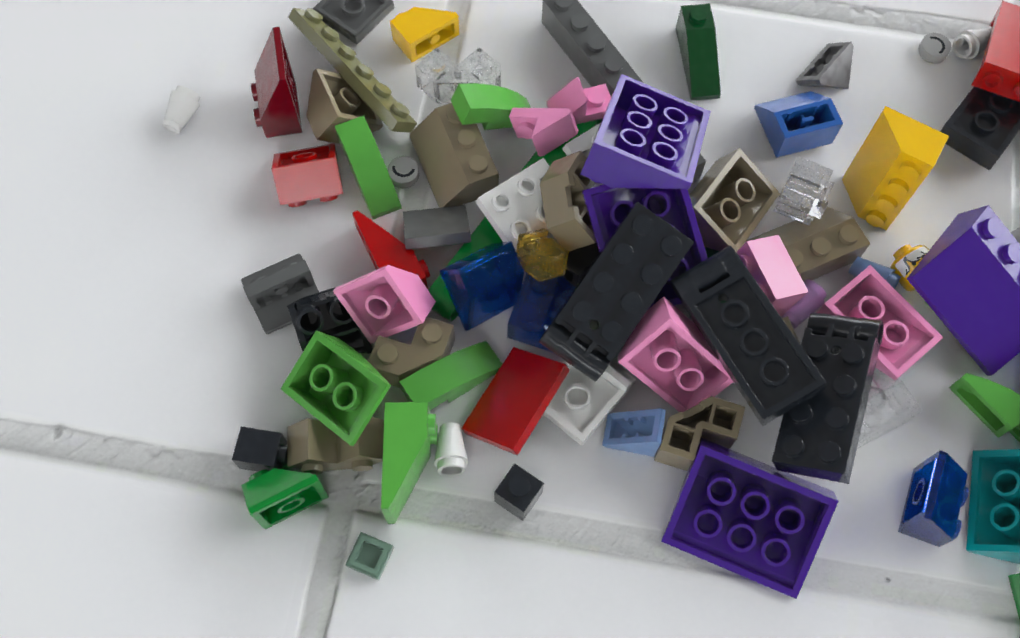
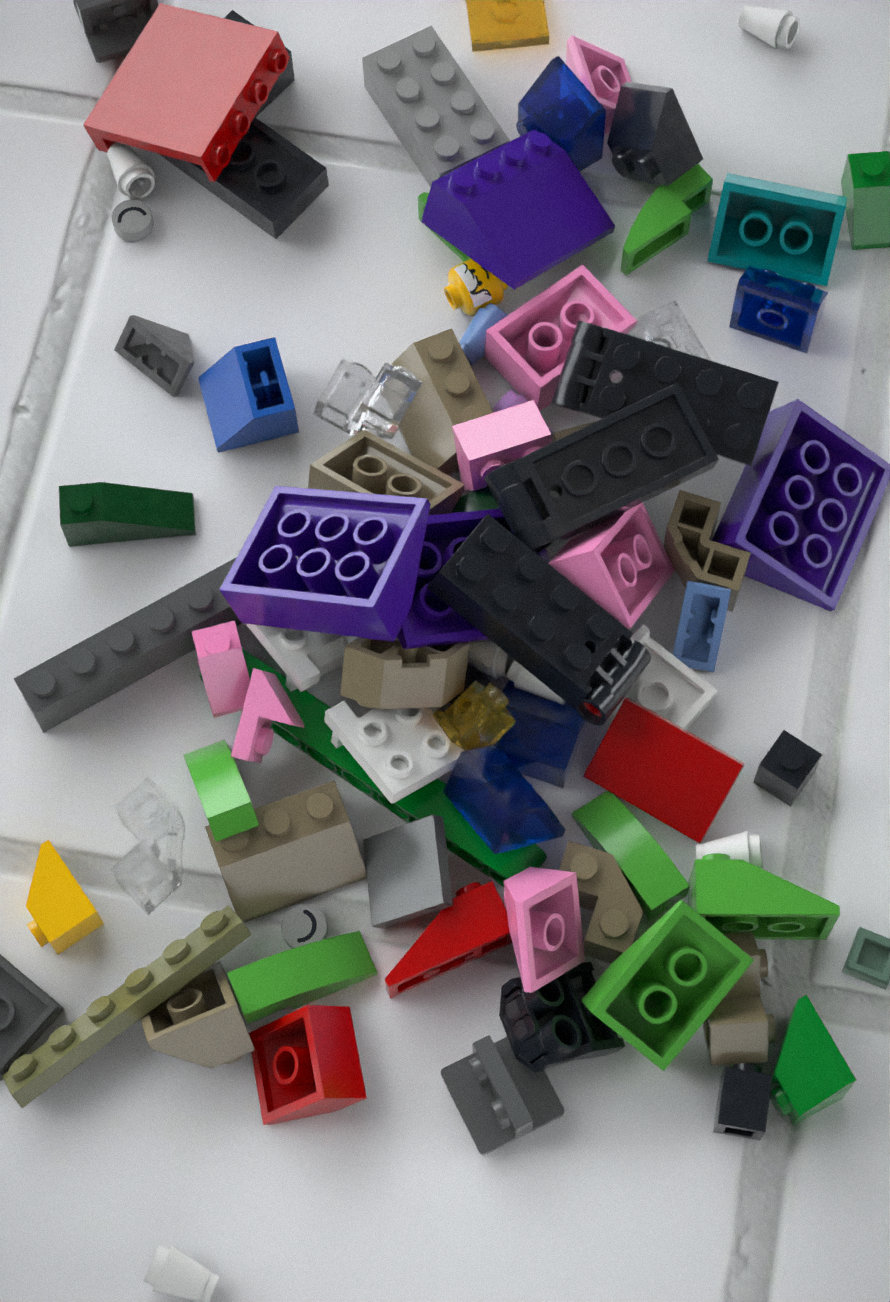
camera: 85 degrees left, 0 degrees up
(276, 90) = (171, 1108): dark red slope -> none
(891, 166) = (363, 284): yellow slope -> none

